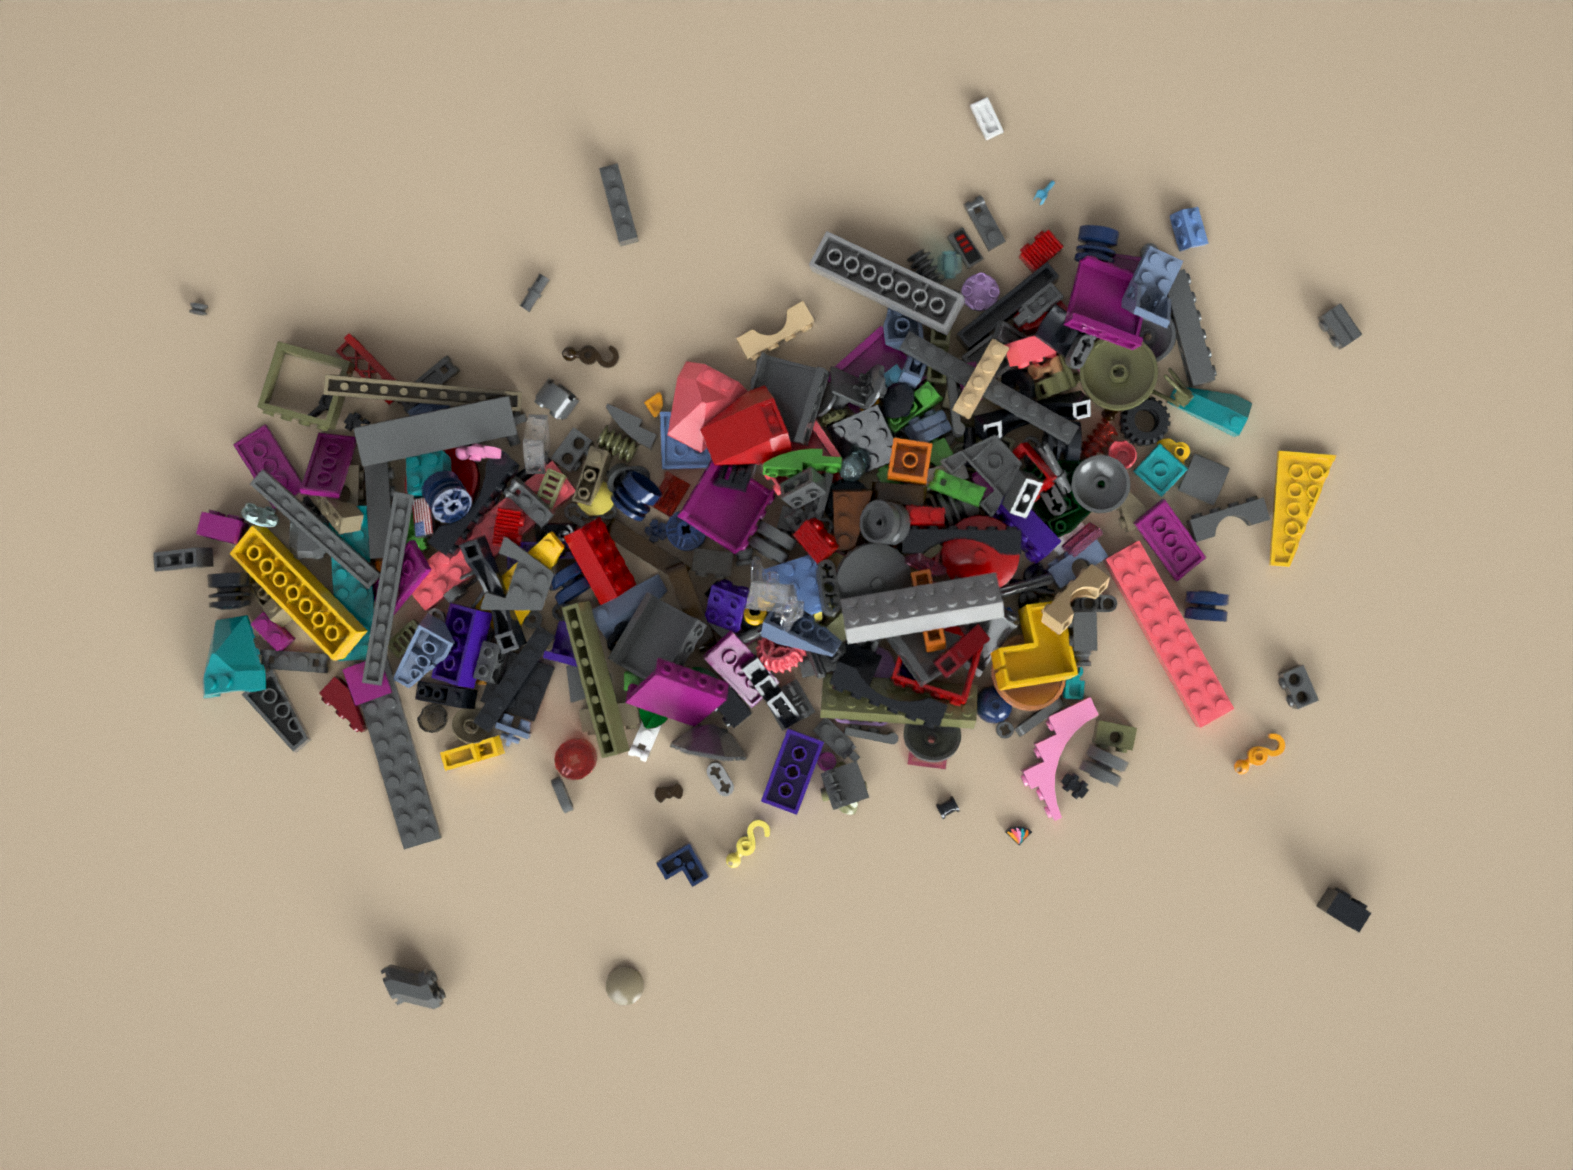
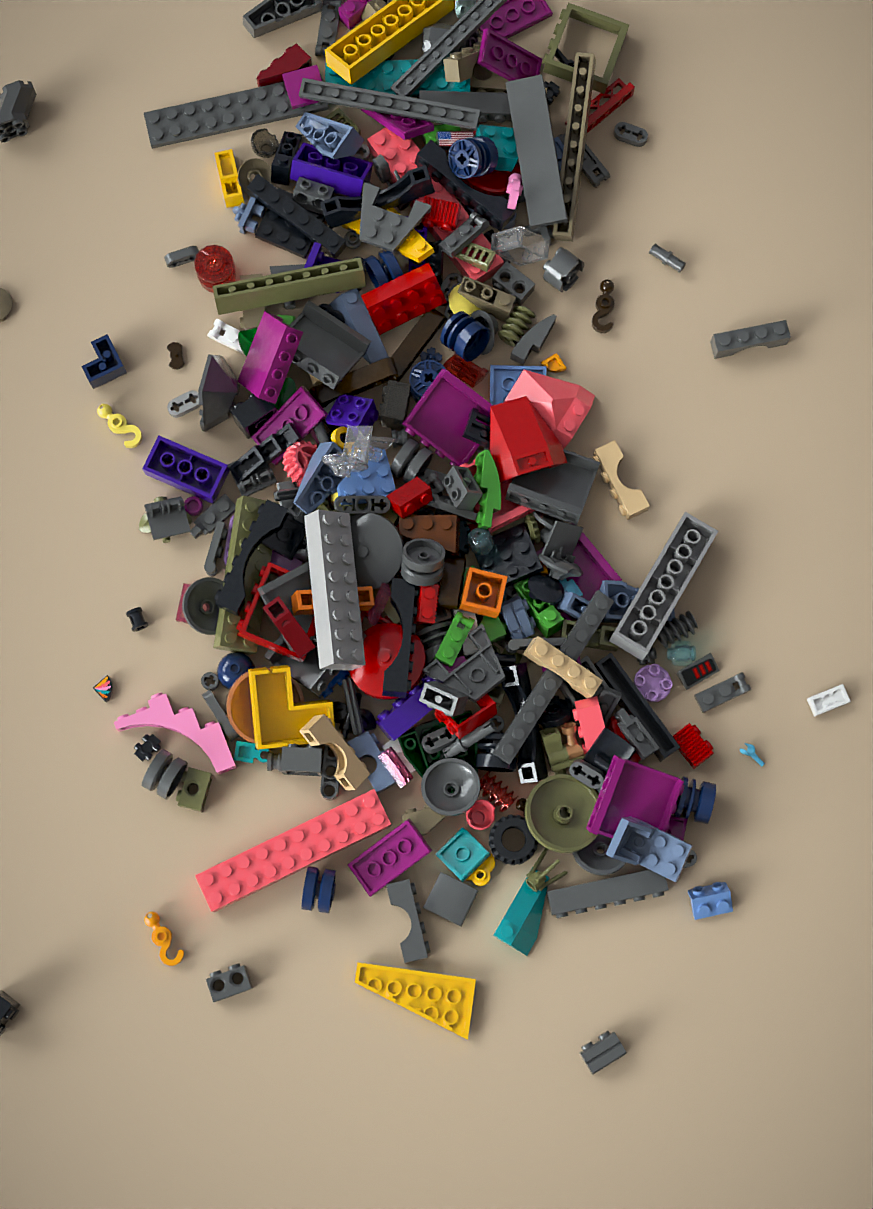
camera: 95 degrees right, 10 degrees down
(403, 337) = (630, 134): none -> dark grey beam

